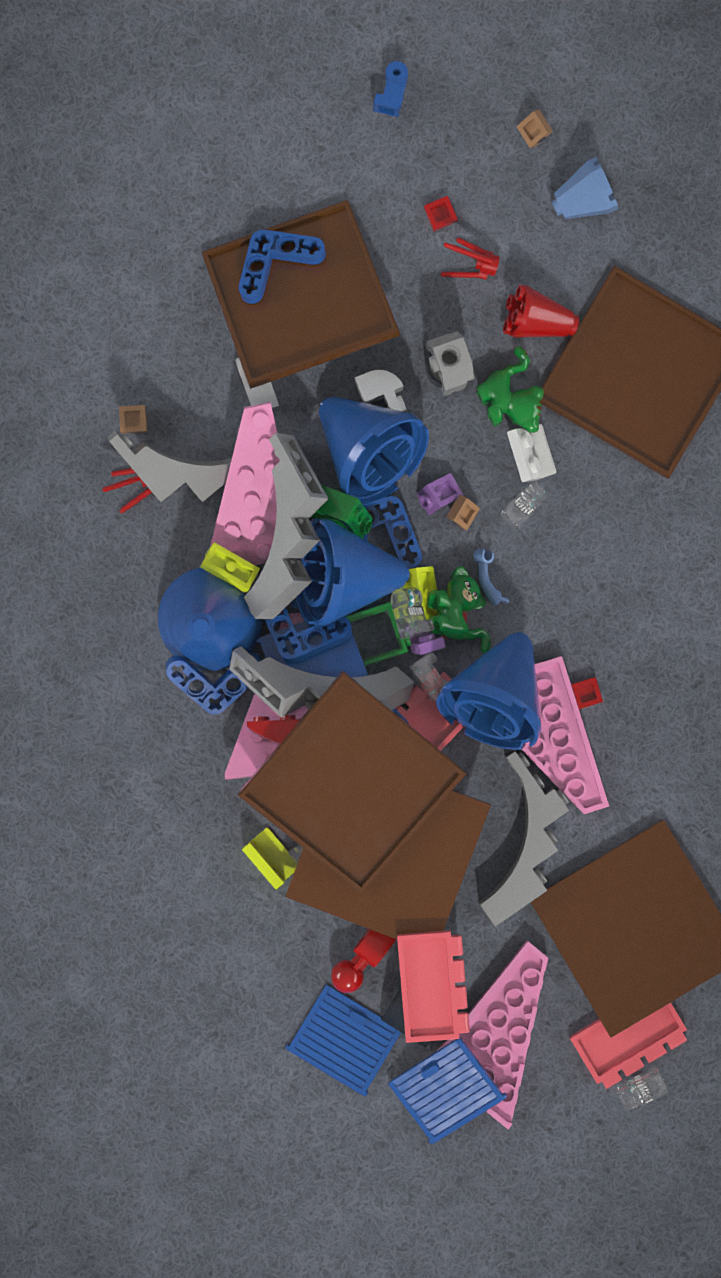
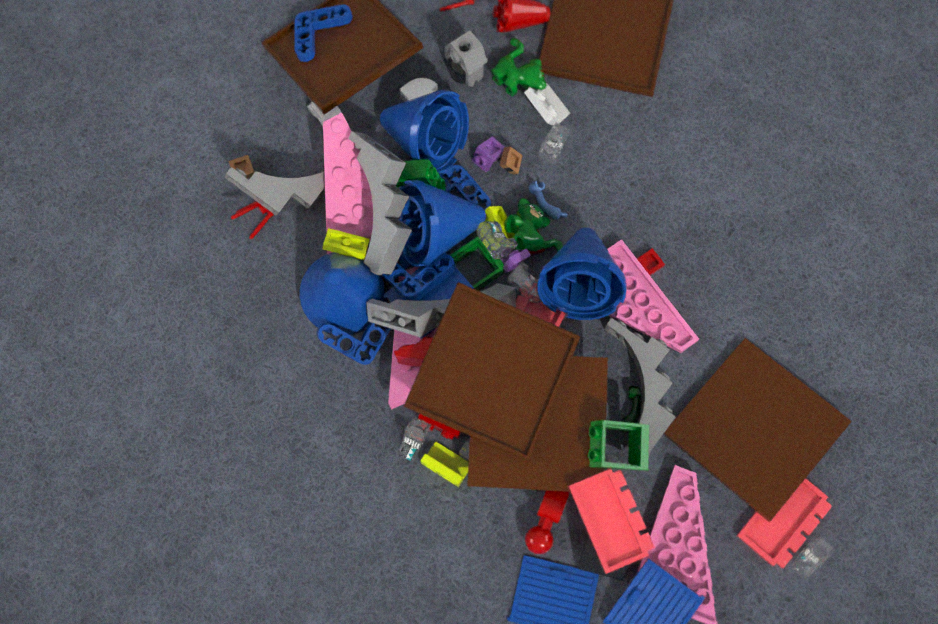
camera: 20 degrees left, 15 degrees down
(239, 824) = (413, 439): none -> clear leg
(487, 920) = (637, 456): none -> green window
(493, 873) = (635, 393): none -> dark green piece

